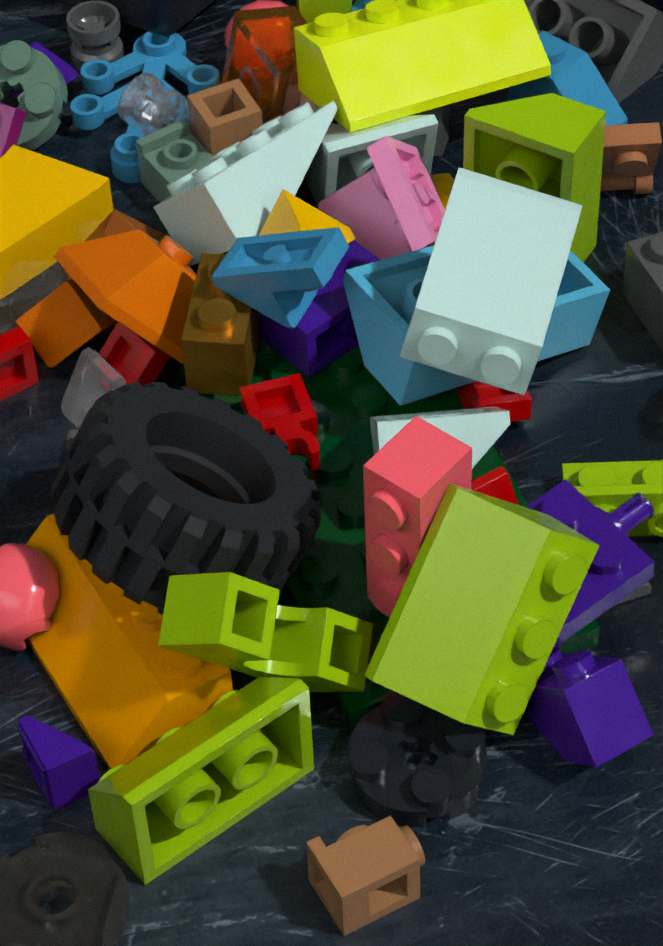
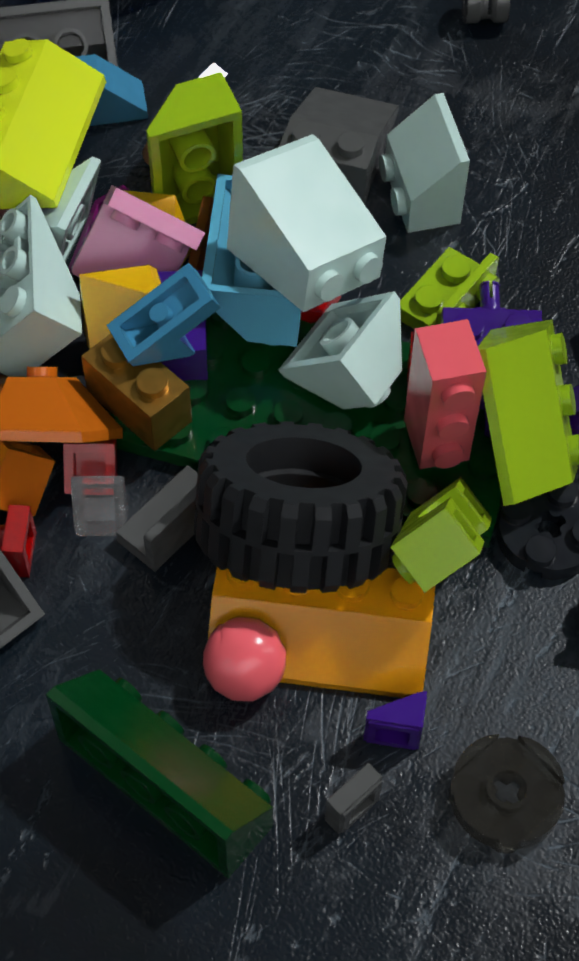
camera: 55 degrees left, 10 degrees up
(205, 775) = (485, 643): lime slope -> none
(285, 411) = (242, 406): red plate -> none

